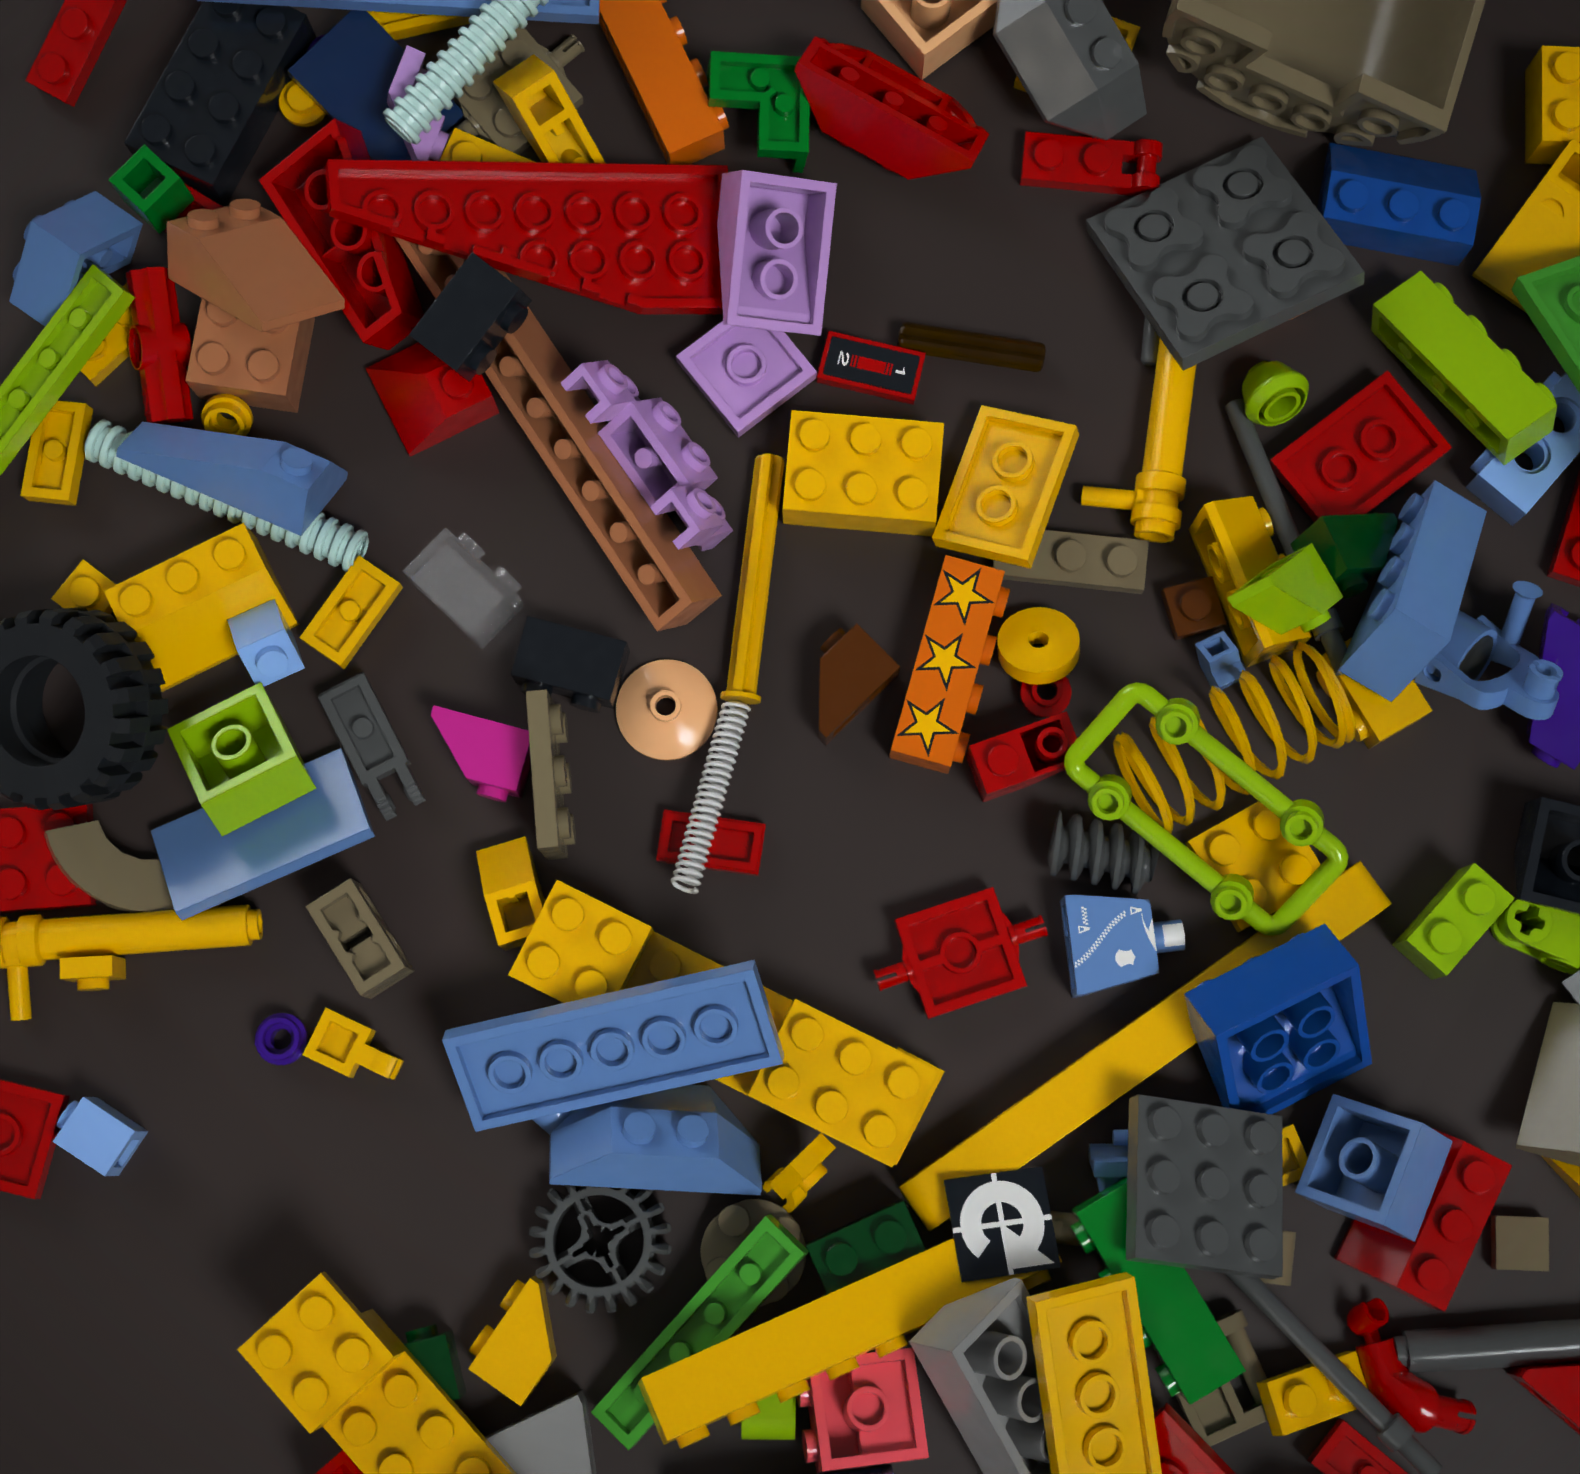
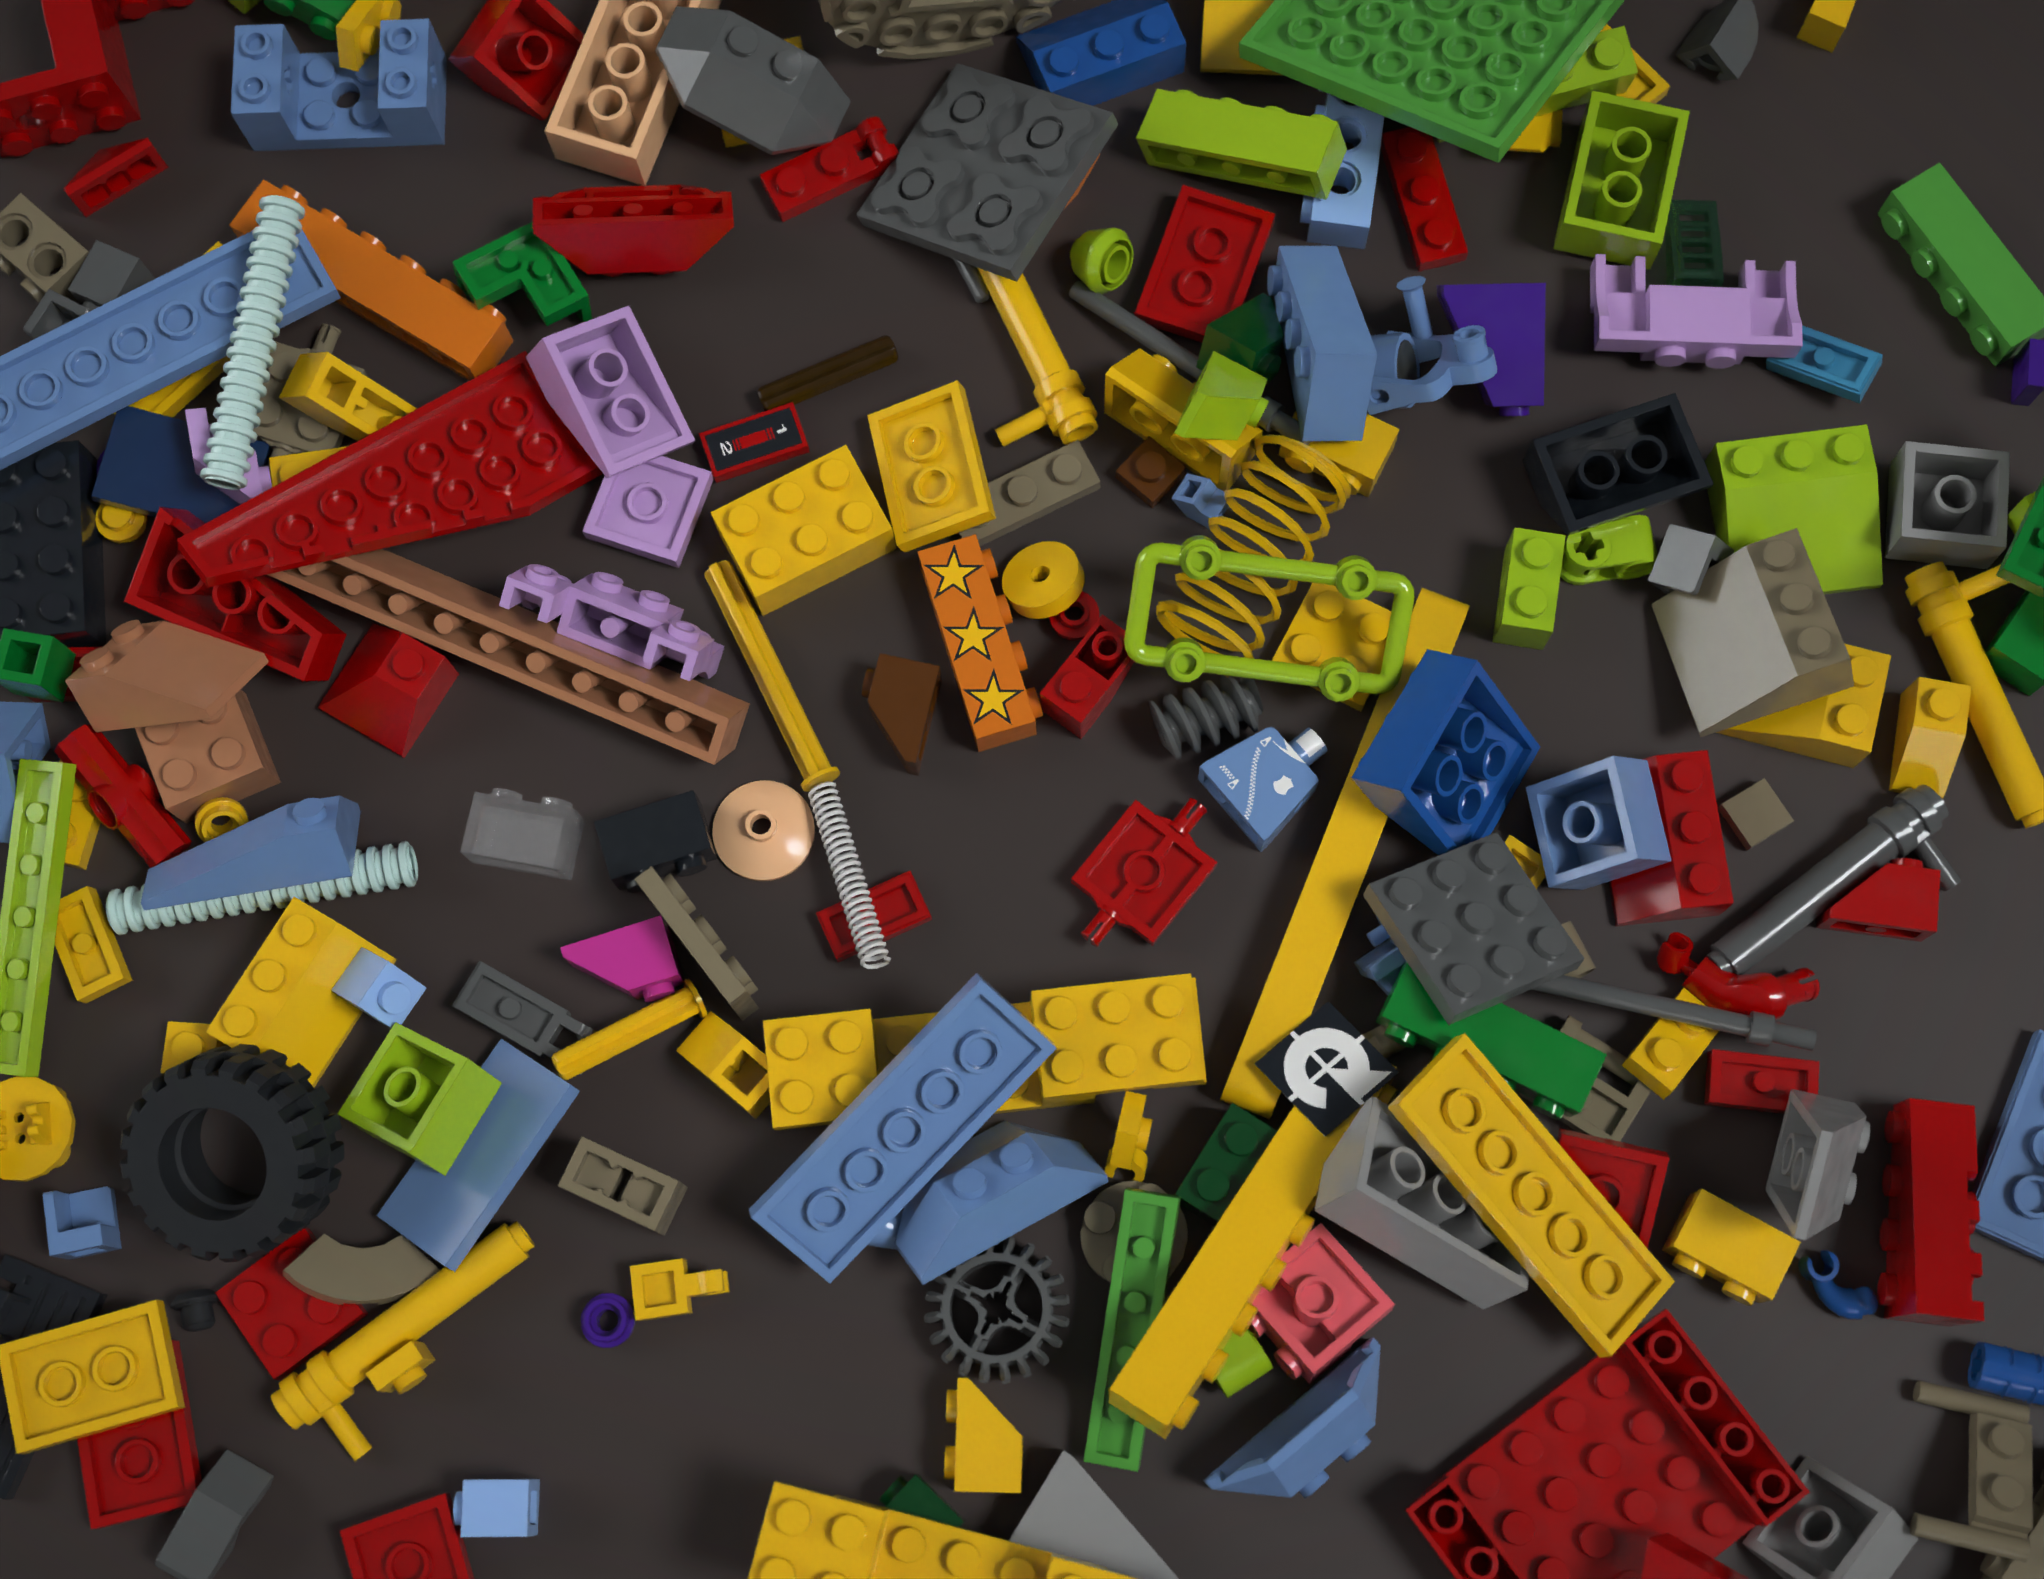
camera: 30 degrees left, 5 degrees down
(351, 612) = (436, 918): yellow plate -> none
(446, 811) = (629, 1031): none -> yellow axle
(472, 317) = (387, 598): black brick -> none

